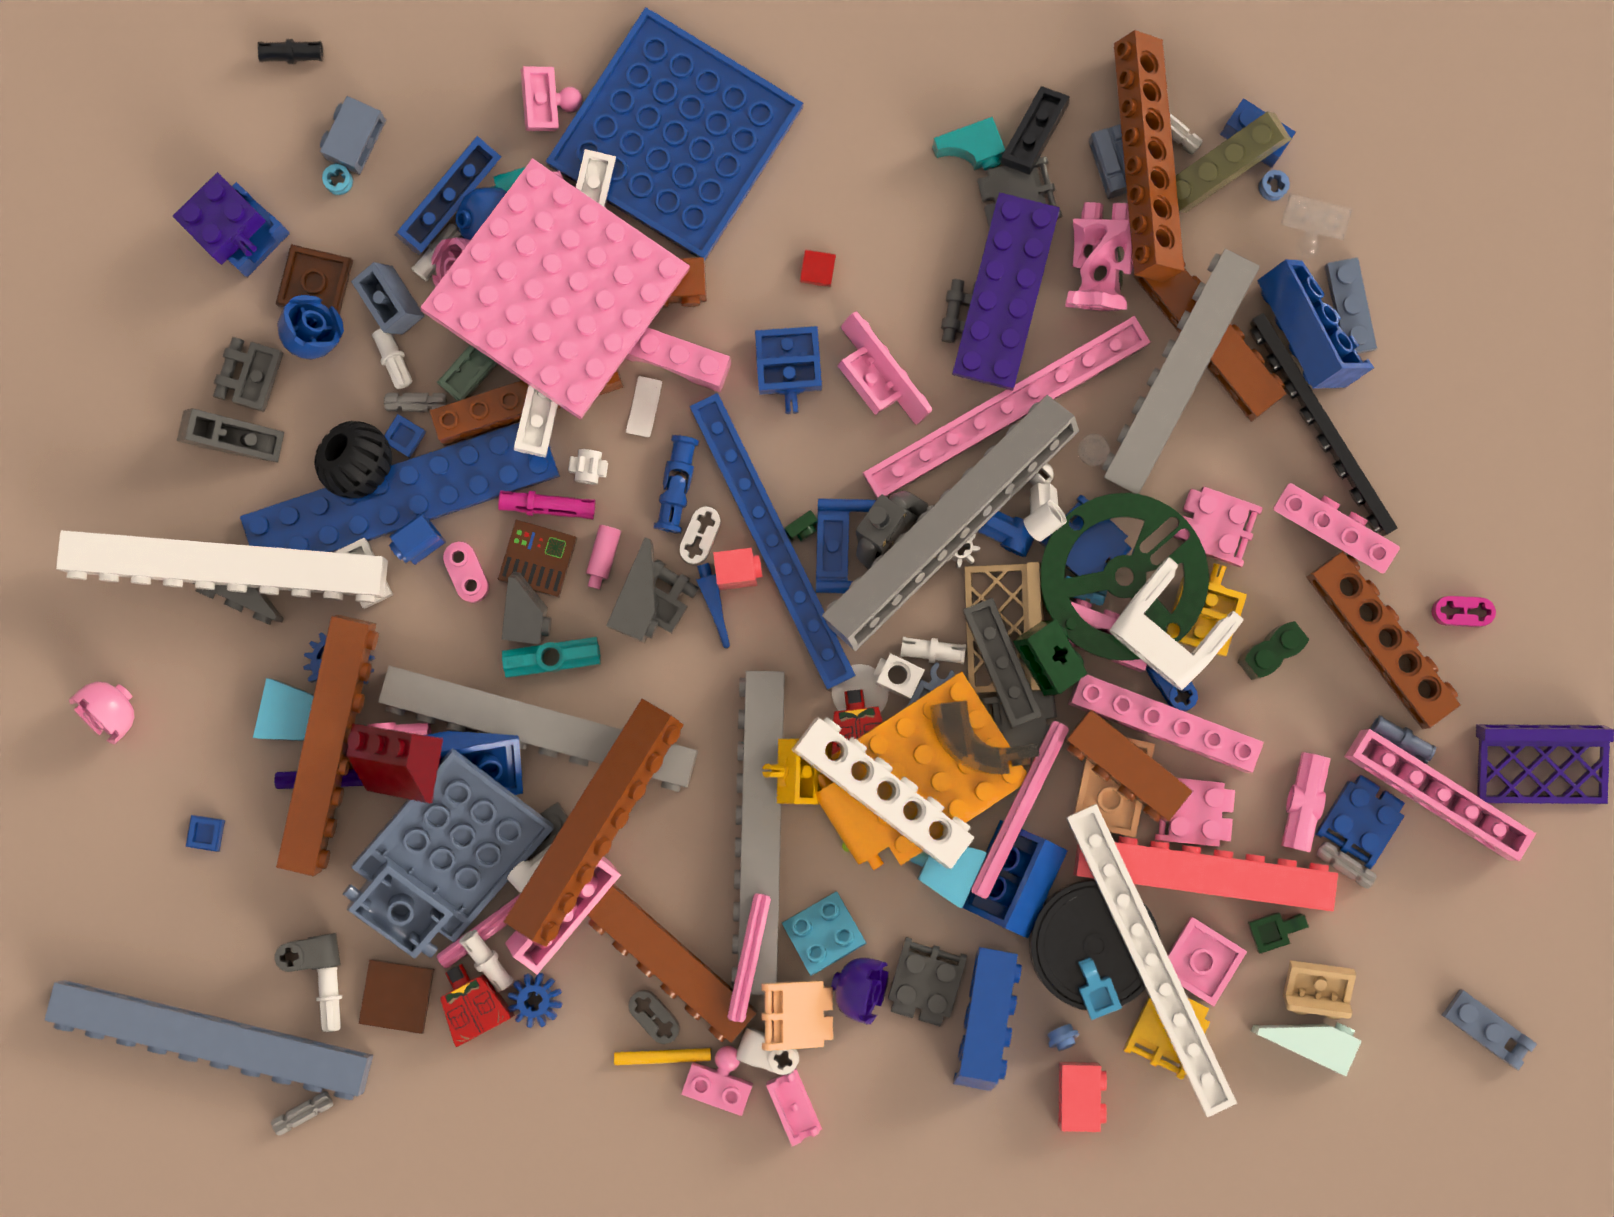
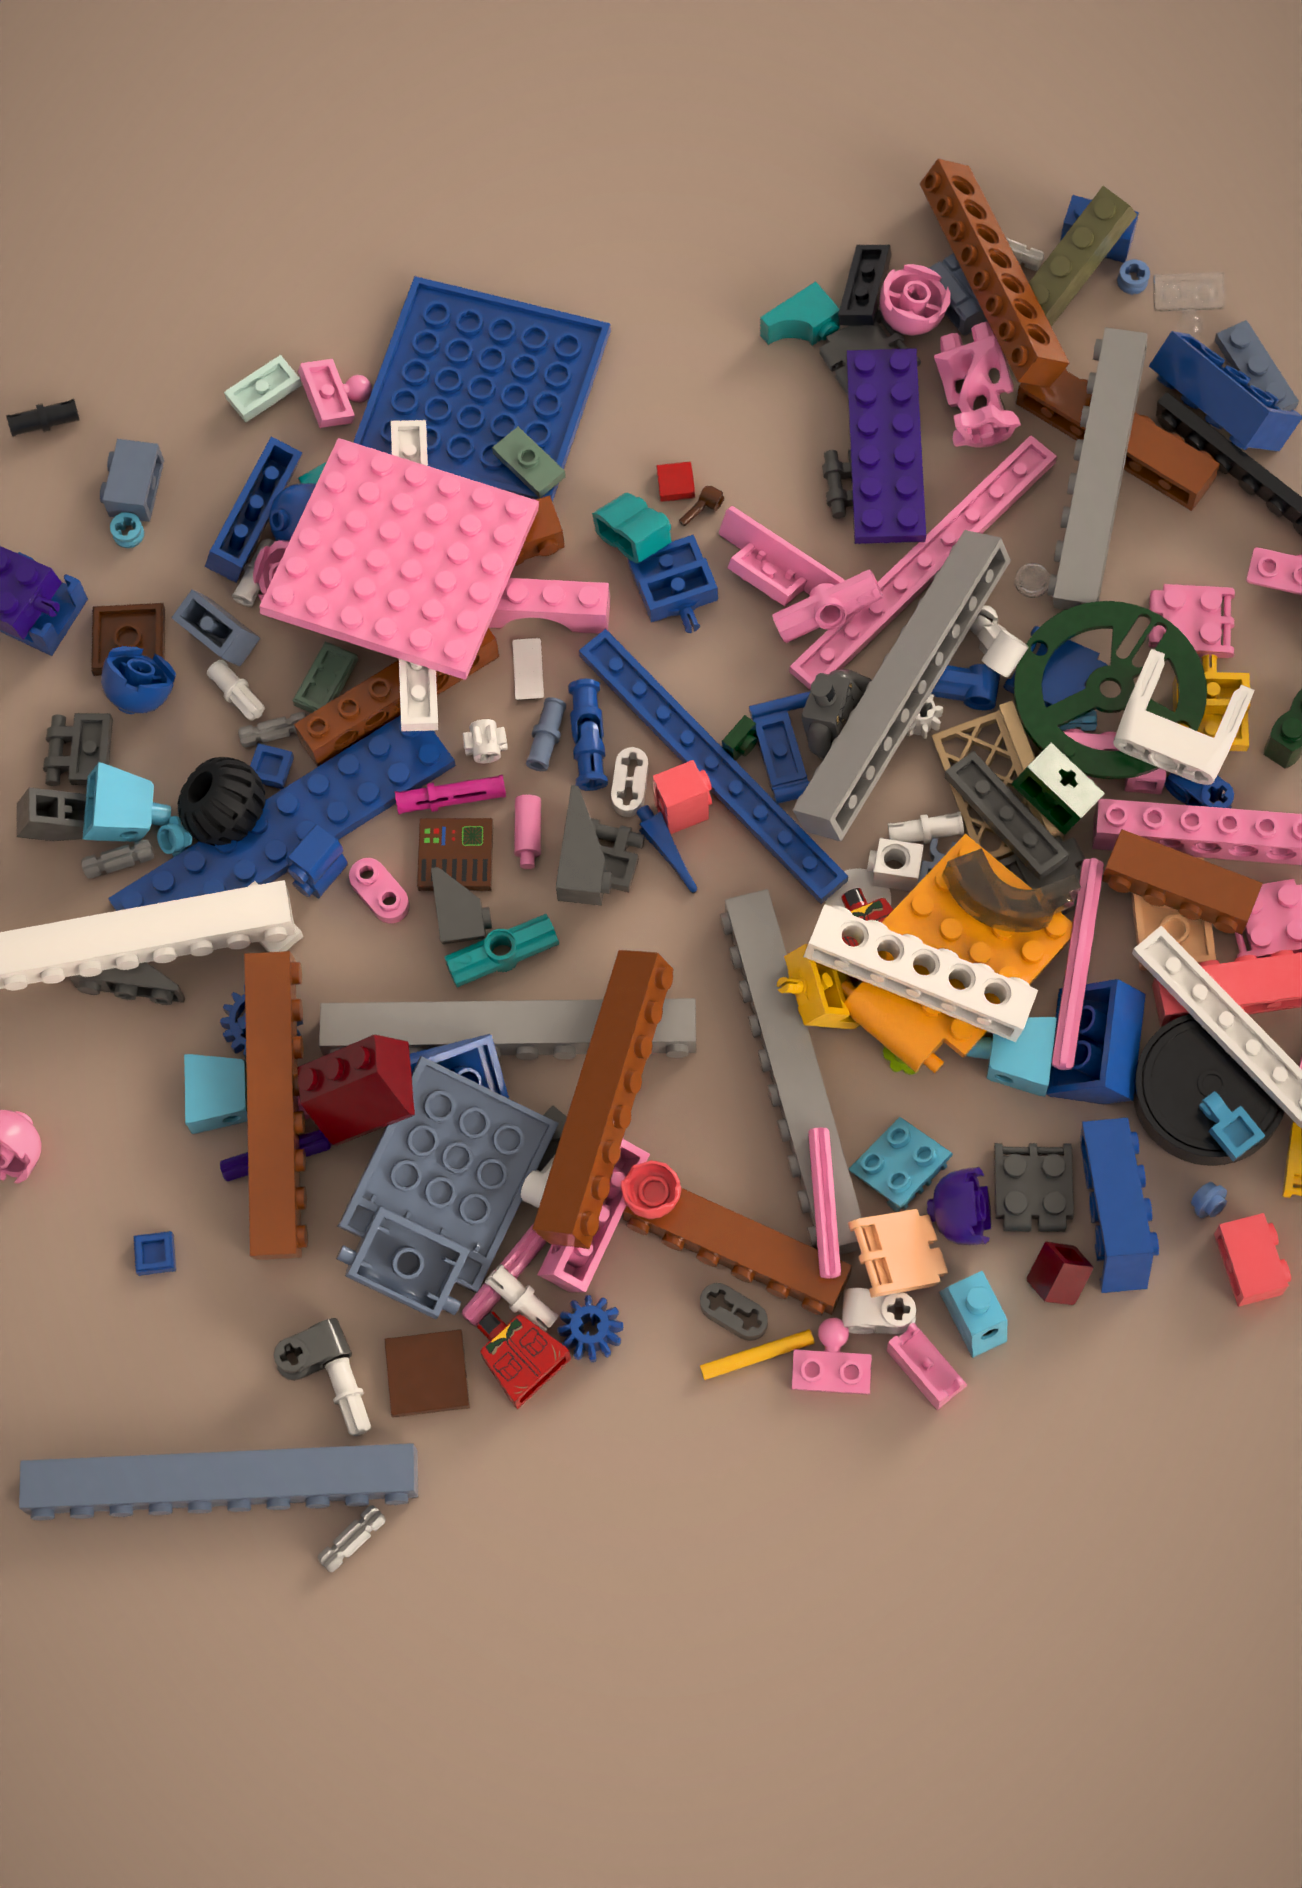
camera: 15 degrees left, 15 degrees down
(257, 481) = (117, 858): none -> light grey axle
(268, 441) = (120, 806): none -> medium azure torso
(306, 478) = (173, 837): none -> medium azure plate
(486, 77) = (263, 388): none -> light aqua plate
(610, 910) = (651, 1189): none -> coral hair
(641, 473) = (546, 734): none -> sand blue pin
(694, 219) = (528, 462): none -> sand green plate
(767, 306) = (632, 527): none -> teal brick
(841, 292) = (708, 497): none -> reddish brown hand
(844, 1074) = (975, 1313): none -> medium azure torso
(910, 428) = (839, 598): none -> bright pink piece
(923, 1062) = (1059, 1273): none -> dark red panel
(1072, 161) = (913, 300): none -> bright pink cylinder

